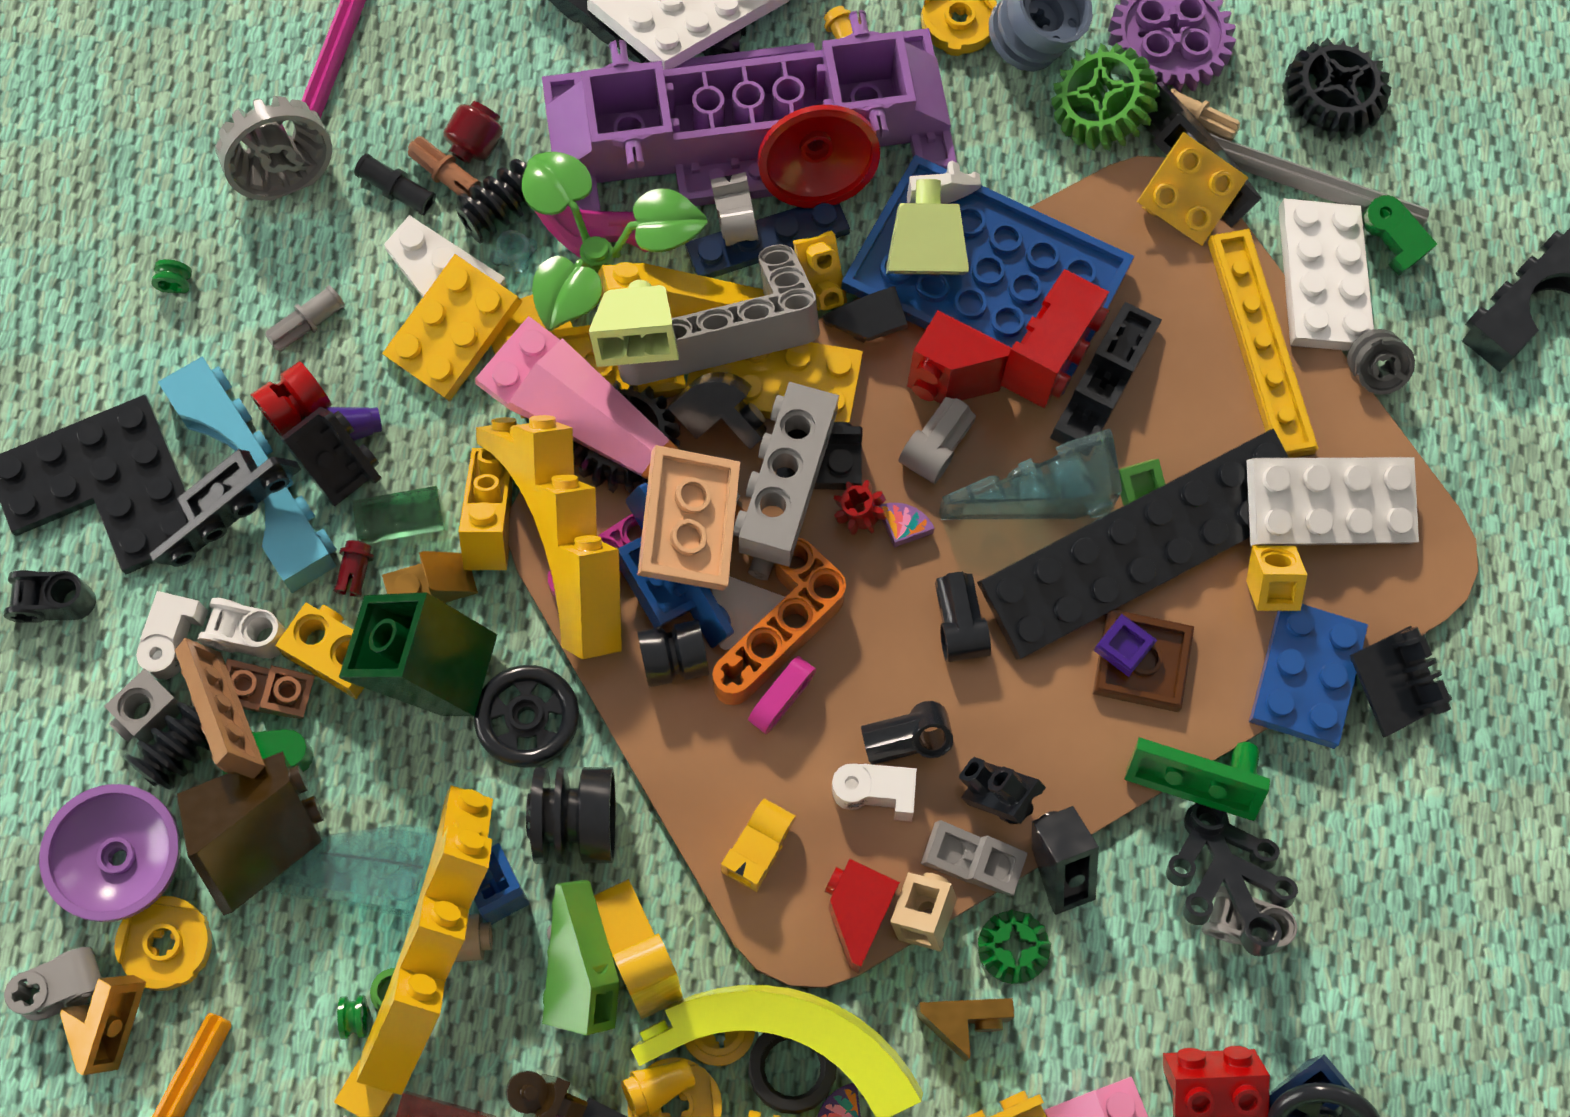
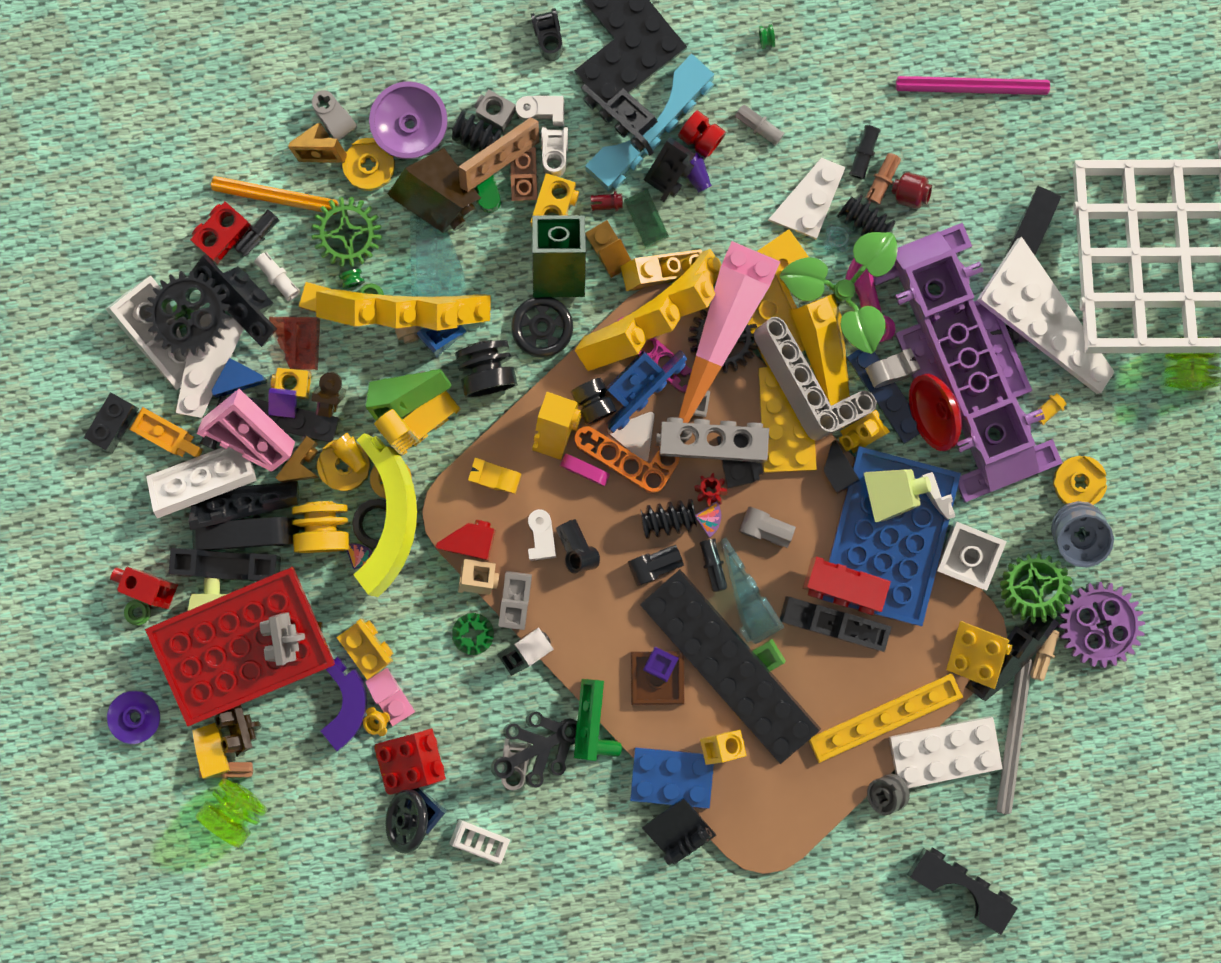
camera: 80 degrees right, 15 degrees up
(245, 1003) = (350, 254): none -> bright green gear
(274, 160) = (863, 72): light grey gear -> none
(452, 327) = (773, 216): yellow plate -> none
(633, 326) = (781, 327): yellowish green torso -> none
(689, 518) = (670, 390): light nougat plate -> none
(698, 713) = (554, 425): none -> yellow wedge
(718, 397) = (757, 388): black brick -> none
(890, 579) = (668, 518): none -> black piece
(951, 1019) = (423, 606): pearl gold slope -> none
(956, 361) = (815, 525): red slope -> none
(980, 532) = (713, 565): none -> black axle
(999, 790) = (554, 606): black hips -> none
(1040, 166) = (970, 555): none -> white slope
(1332, 501) = (781, 775): white plate -> none
(1335, 101) = (1101, 758): black gear -> none
(1354, 1039) = (458, 833): none -> white slope
(1399, 231) = (991, 787): green leg -> none

